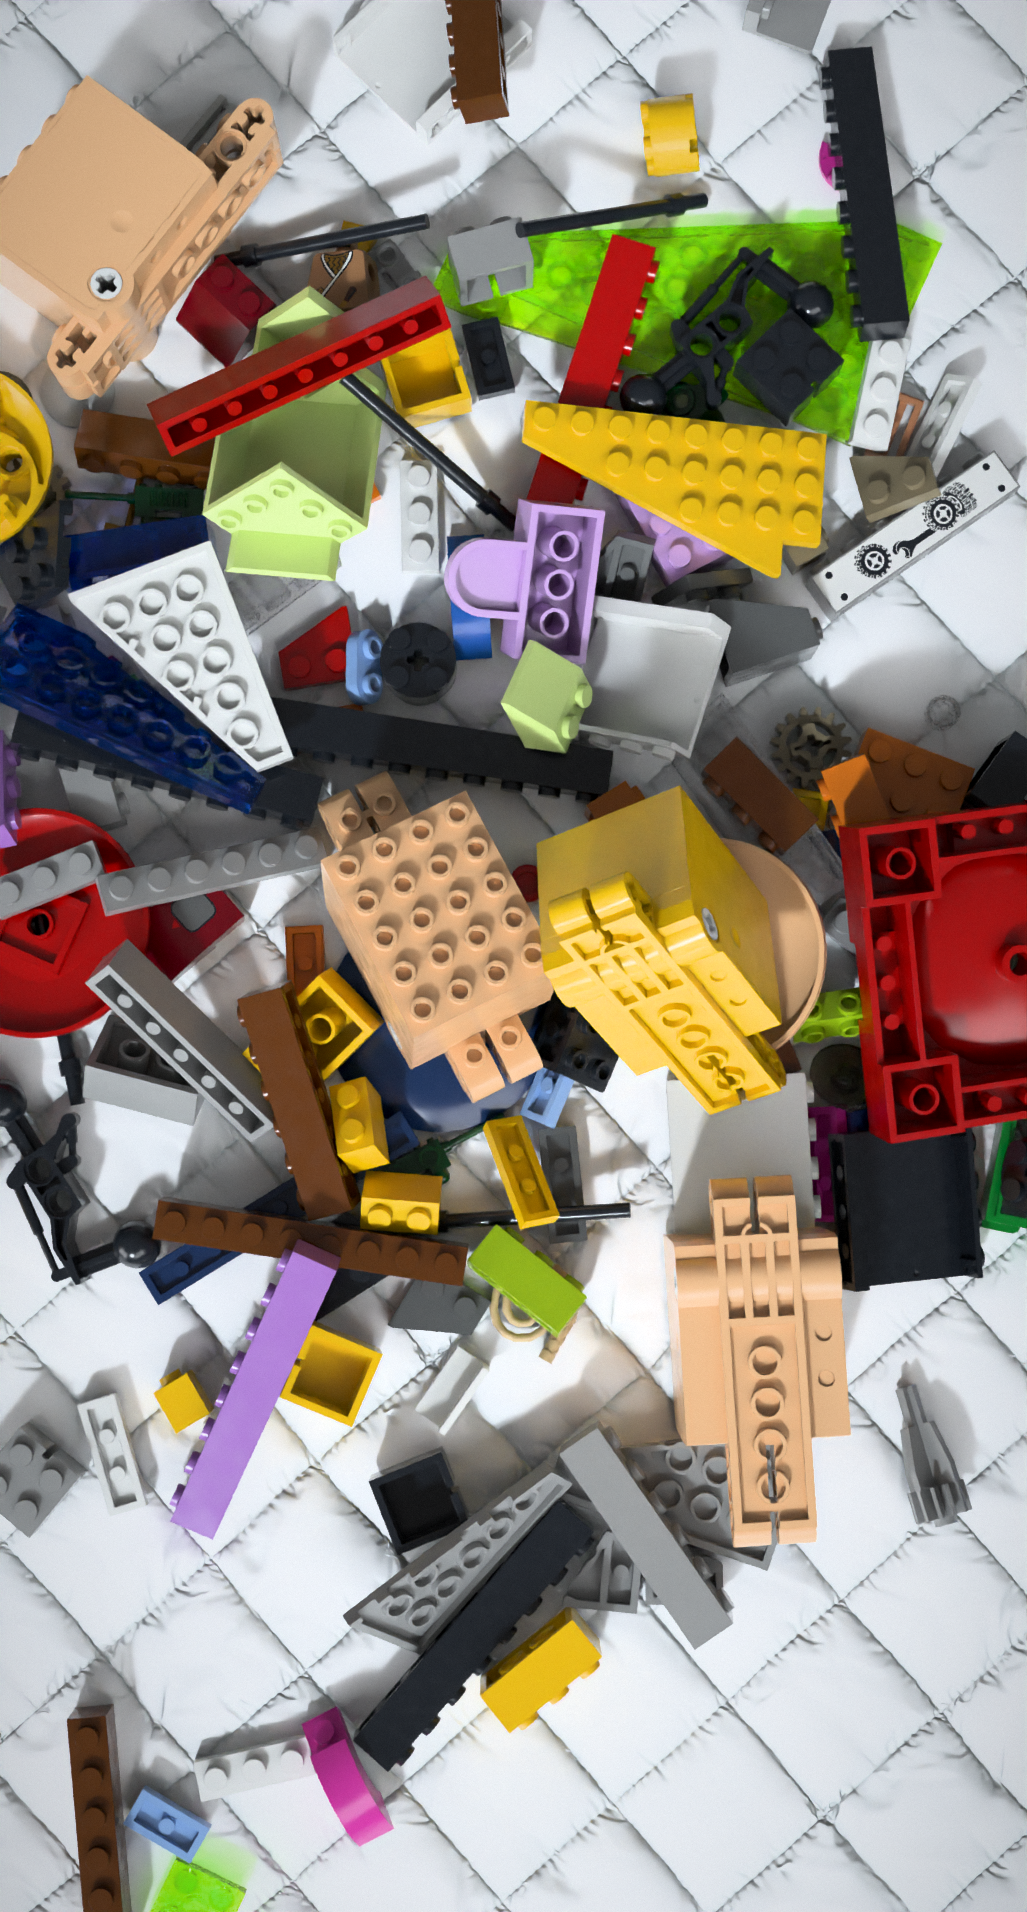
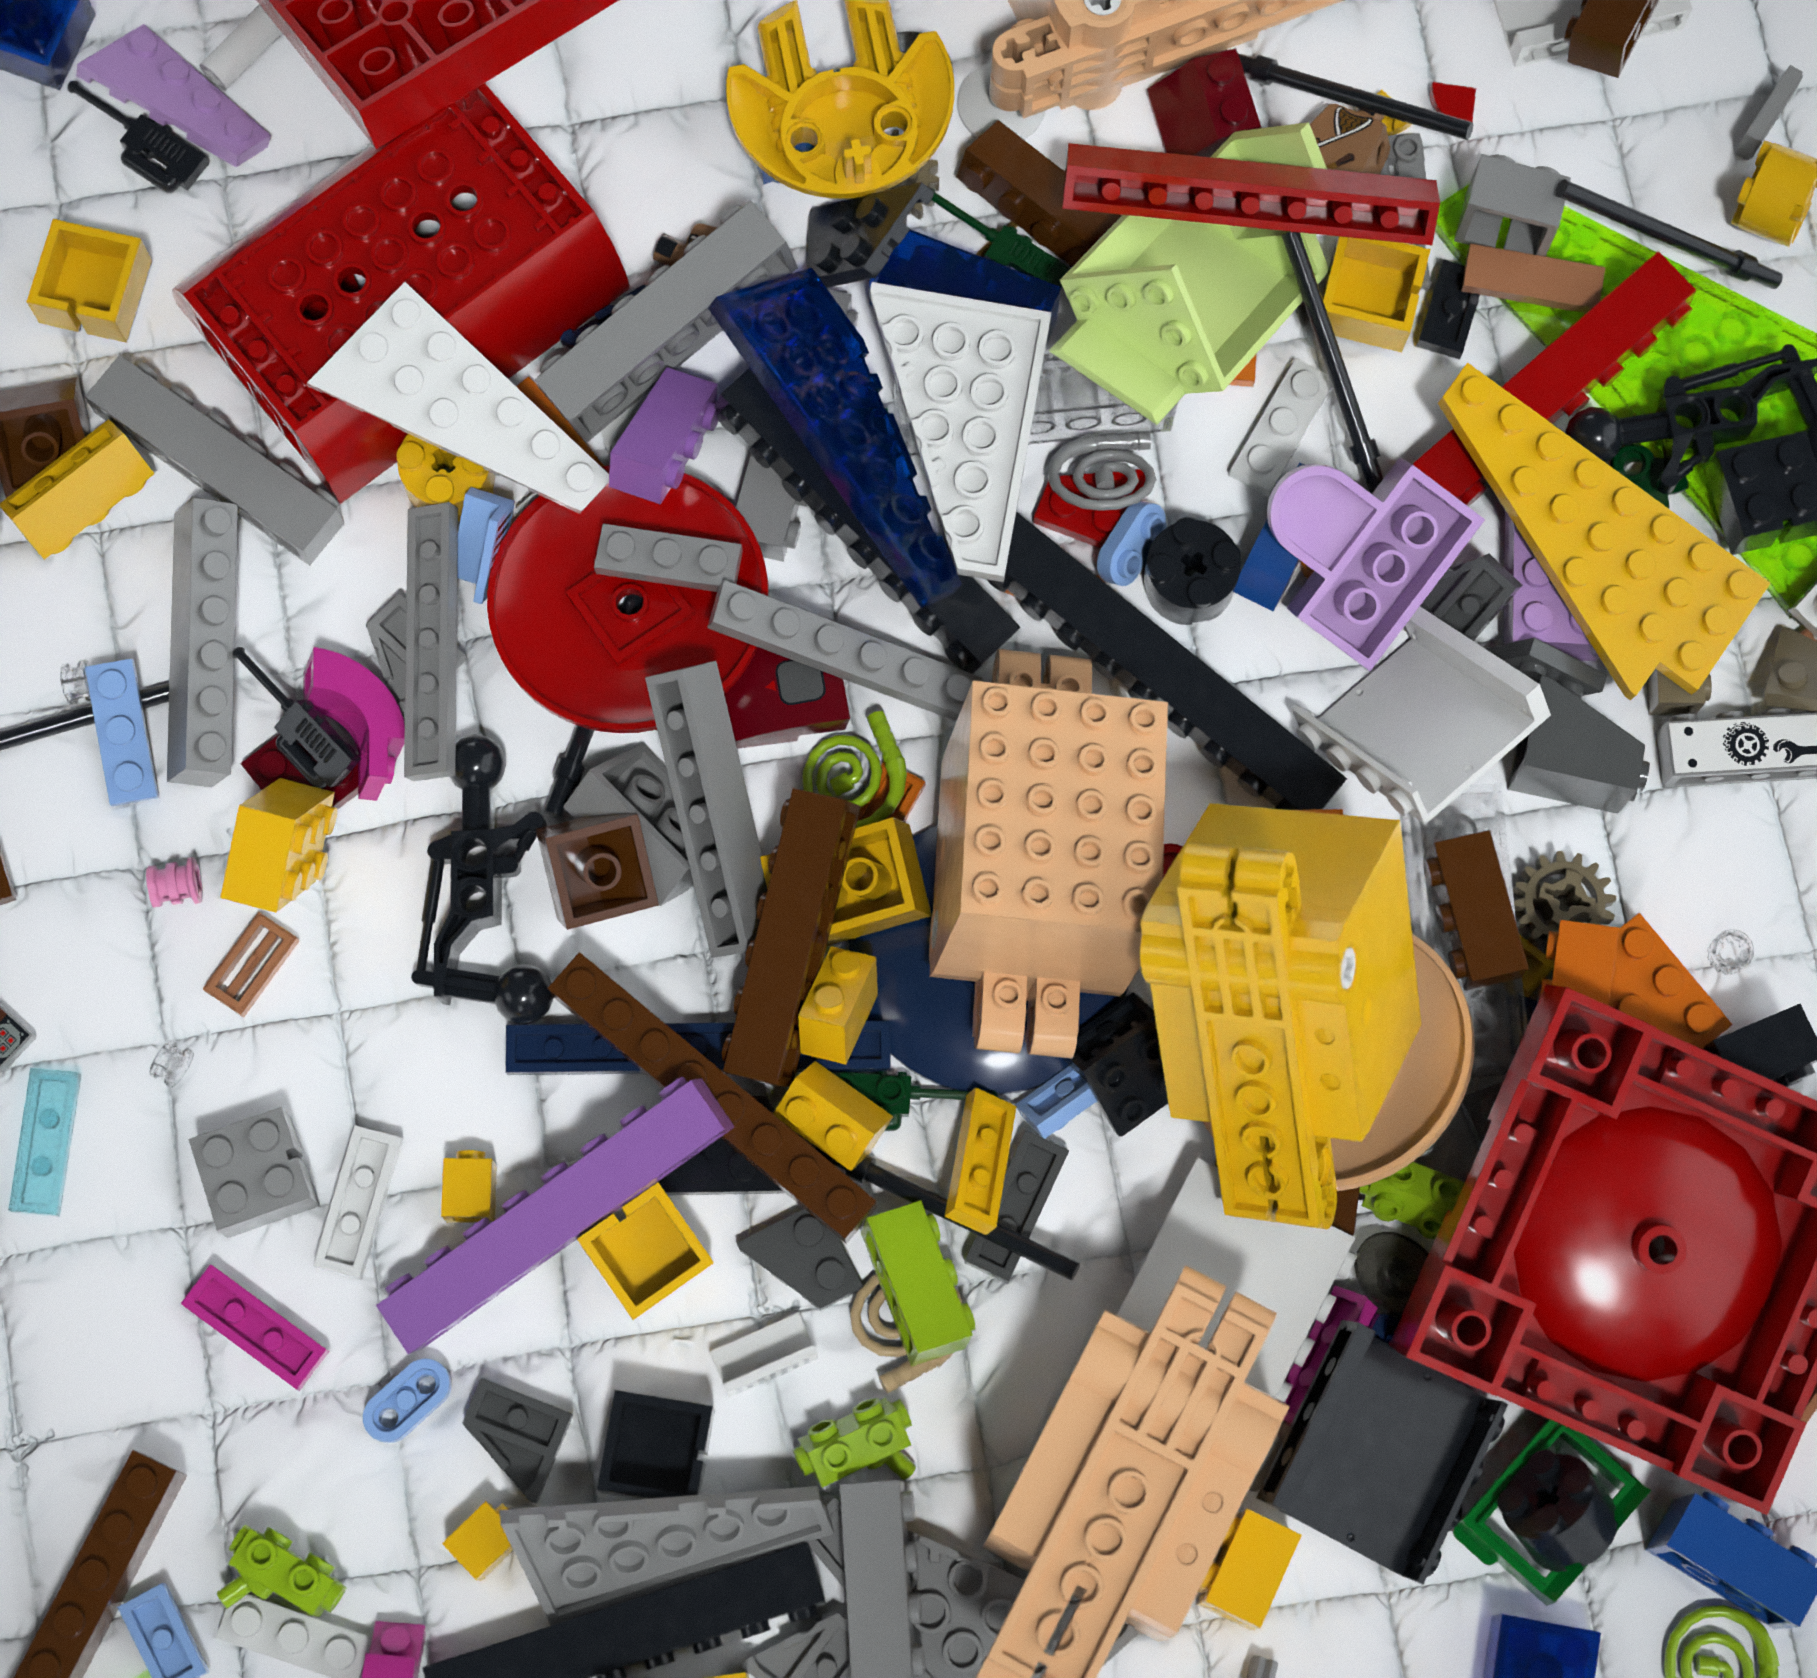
camera: 30 degrees right, 10 degrees down
(96, 1581) = (255, 1327): none -> dark pink plate
(133, 1128) = (597, 868): none -> reddish brown slope
(211, 1733) = (271, 1567): none -> lime brick
(231, 1566) = (404, 1397): none -> light blue plate
(268, 958) = (845, 782): none -> lime piece
(318, 633) = (1103, 448): none -> light grey piece
(319, 1542) = (517, 1434): none -> dark grey wing
(335, 1635) = (480, 1541): none -> yellow brick
(401, 200) = (1453, 100): none -> red tile
(533, 303) = (1532, 278): none -> nougat tile
(546, 699) = (1306, 677): yellowish green slope -> none
(551, 1411) = (859, 1440): none -> lime brick
(629, 75) = (1770, 112): none -> light grey tile
(868, 1340) = (1248, 1569): none -> yellow piece

